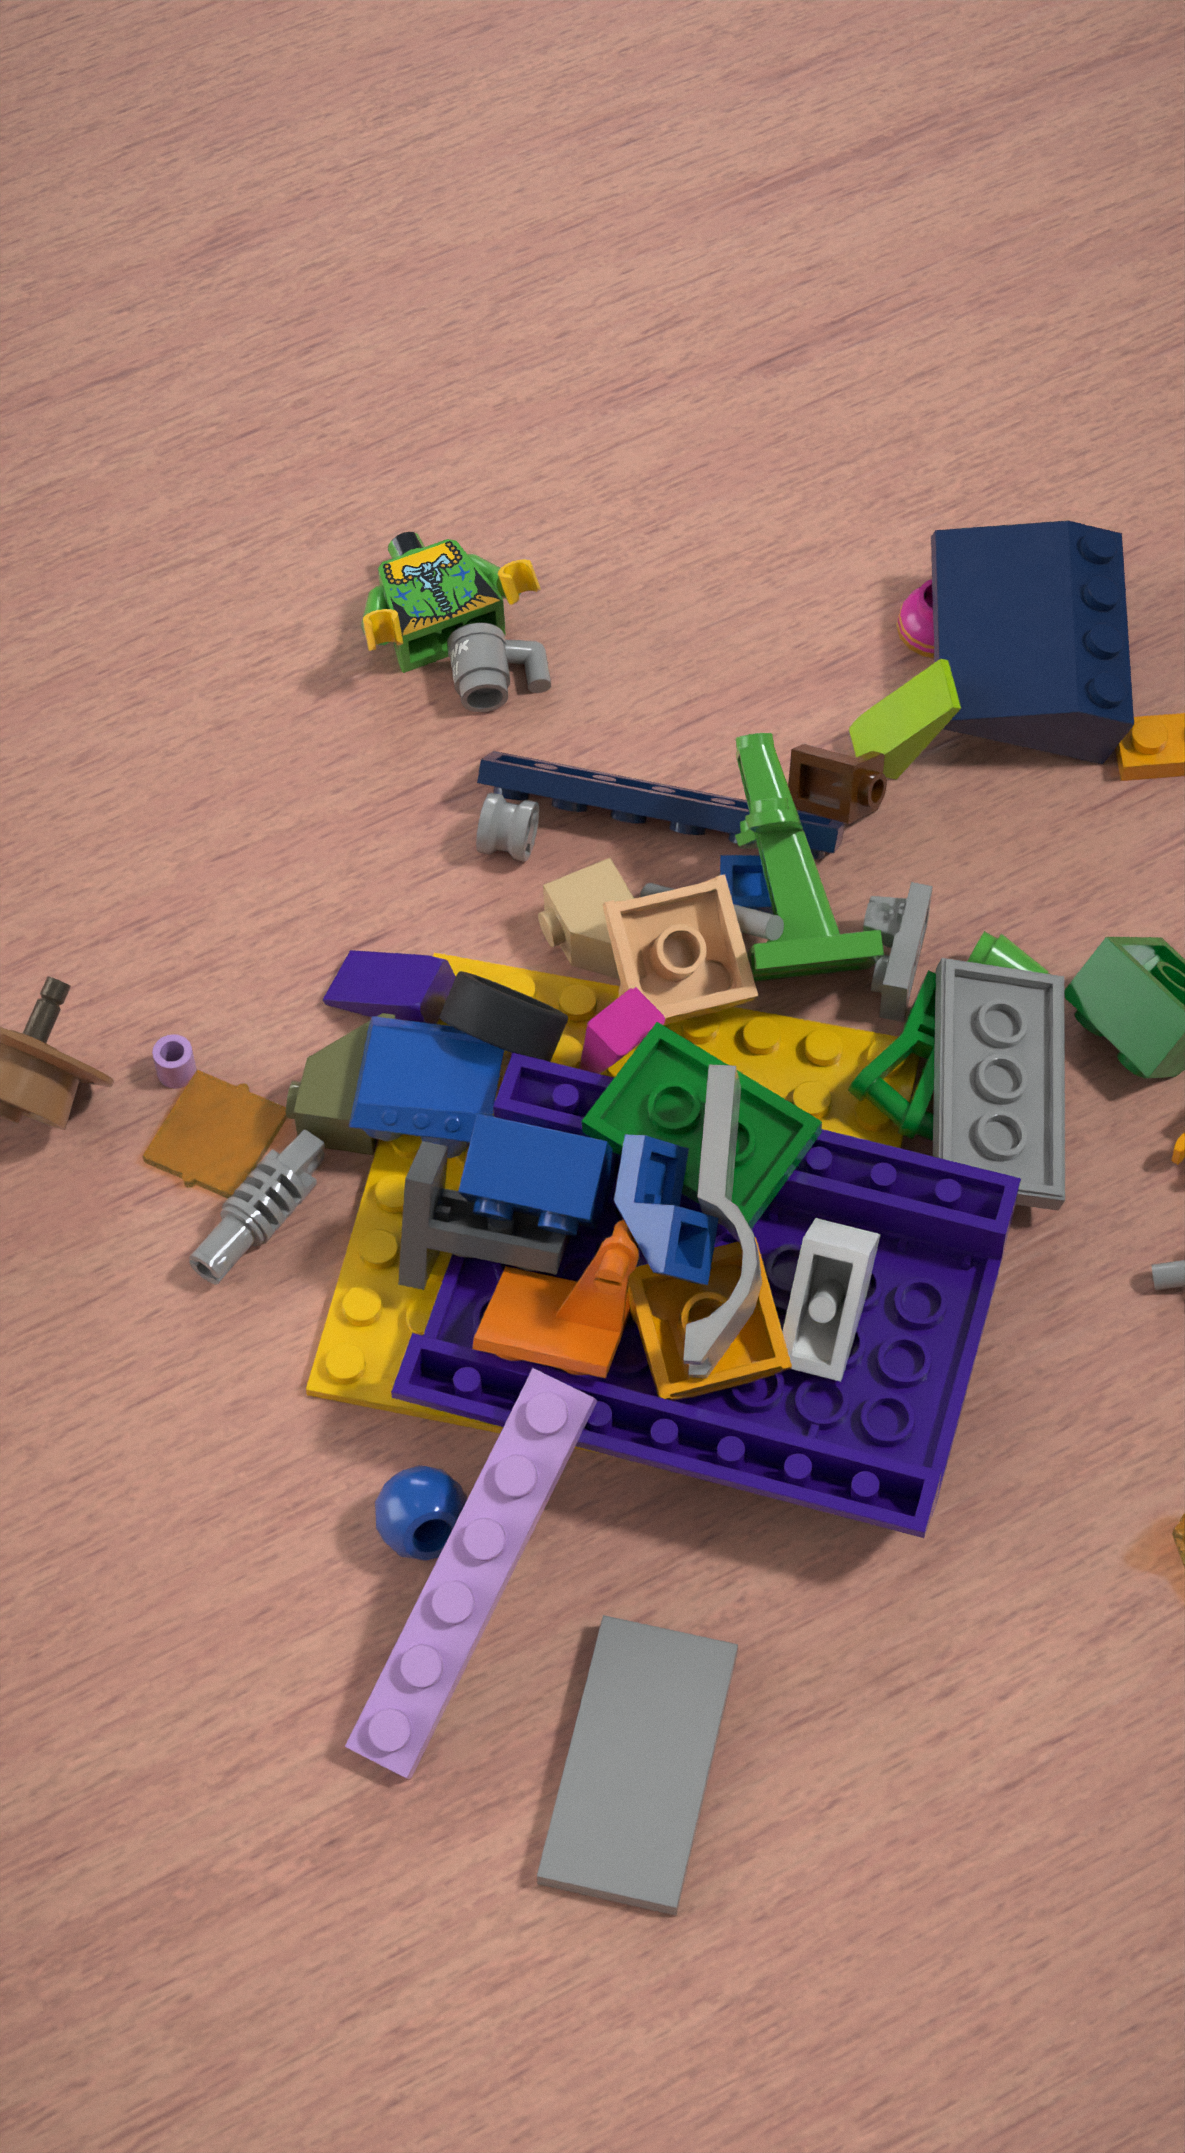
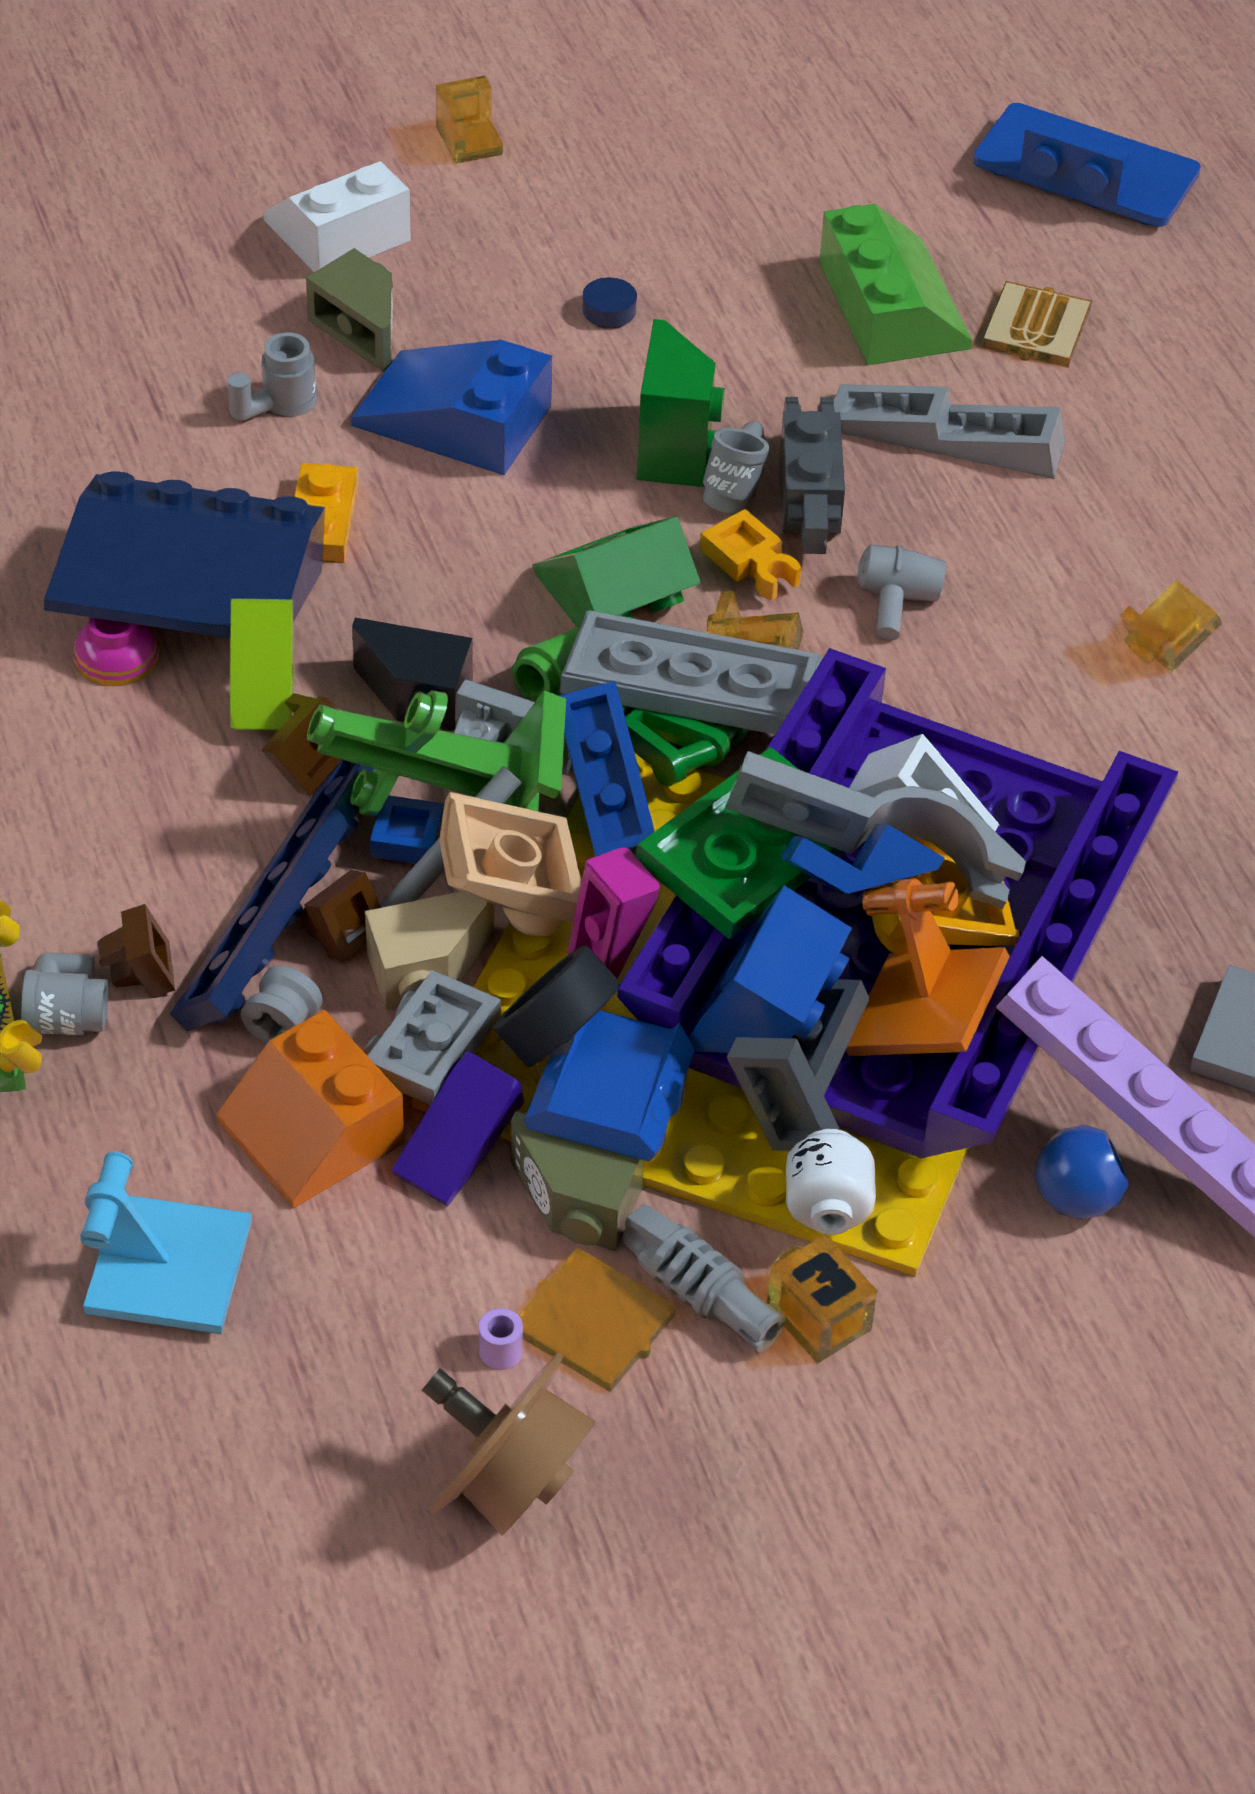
camera: 85 degrees left, 10 degrees down
(219, 800) = (160, 1256): none -> medium azure plate
(245, 1302) = (821, 1297): none -> clear yellow brick
(351, 1280) = (830, 1181): none -> white head
(399, 877) = (313, 1110): none -> orange slope
(482, 939) = (432, 1034): none -> light grey bracket
(549, 712) = (138, 953): none -> reddish brown tile
(632, 849) = (338, 915): none -> reddish brown tile
(831, 1022) = (606, 769): none -> blue plate
(956, 855) = (411, 660): none -> black slope
(1096, 1138) = (773, 629): none -> clear yellow bracket

